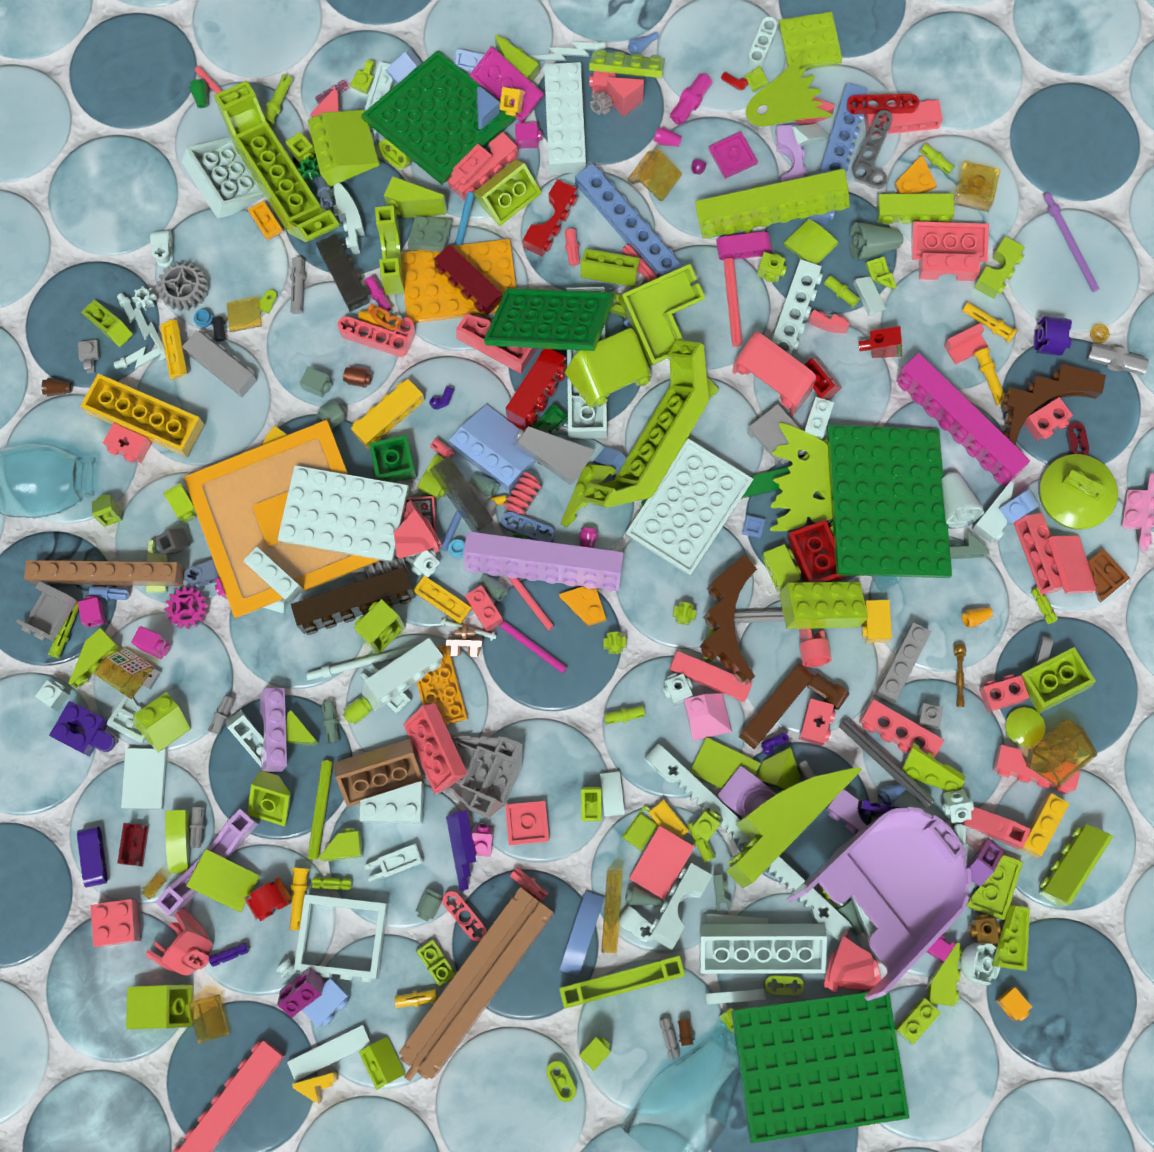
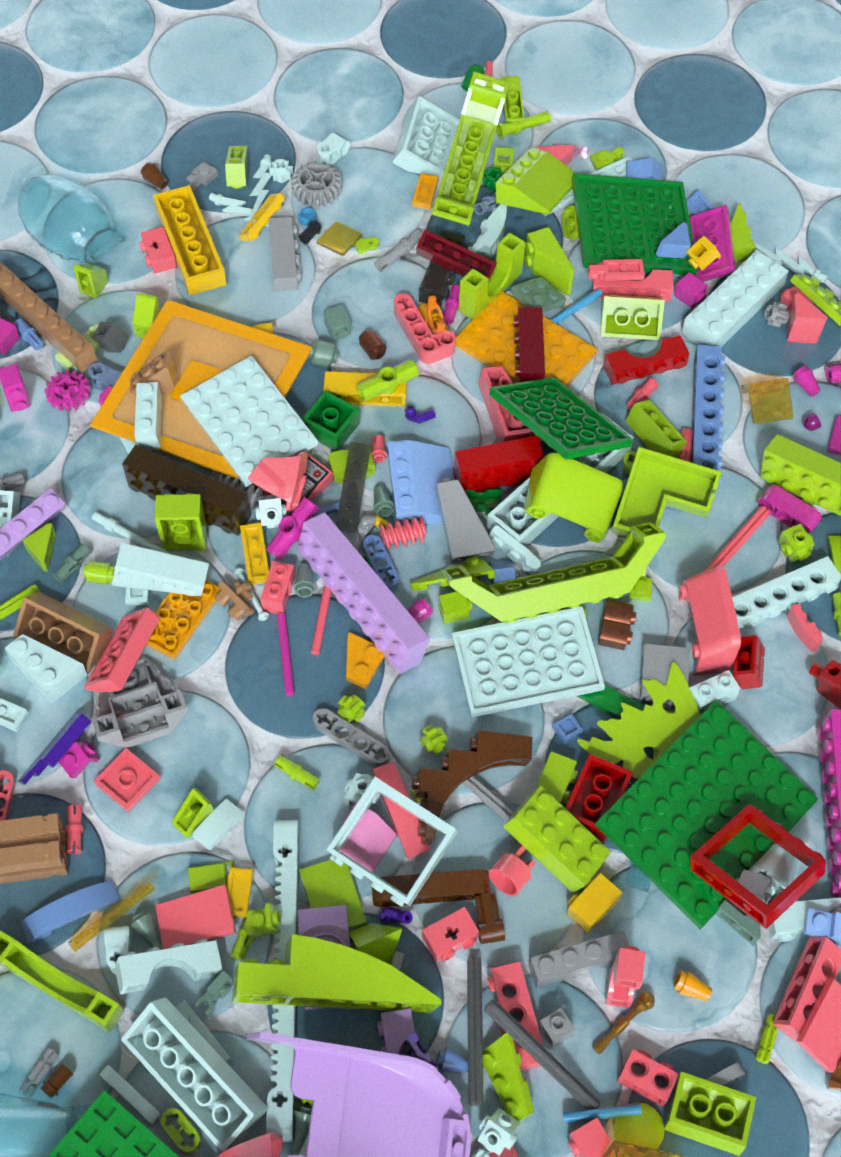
camera: 40 degrees right, 15 degrees down
(245, 543) = (159, 370): none -> medium nougat slope
(263, 95) = (513, 102): none -> lime slope
(353, 259) = (453, 256): none -> dark red brick
(405, 386) = (396, 376): none -> lime piece
(450, 548) = (290, 528): none -> dark pink piece
(606, 517) = (454, 607): none -> lime brick
(607, 439) = (515, 550): none -> light aqua hinge
(631, 658) = (352, 735): none -> light grey beam
(716, 429) = (616, 625): none -> copper brick
(749, 735) = (413, 808): none -> light aqua window
(941, 741) = (541, 1055): none -> dark grey axle
(945, 650) = (625, 977): none -> coral arch
(954, 539) = (738, 894): none -> red window
(960, 526) = (757, 884): none -> light grey brick
(1000, 738) = (602, 1113): none -> dark azure bar

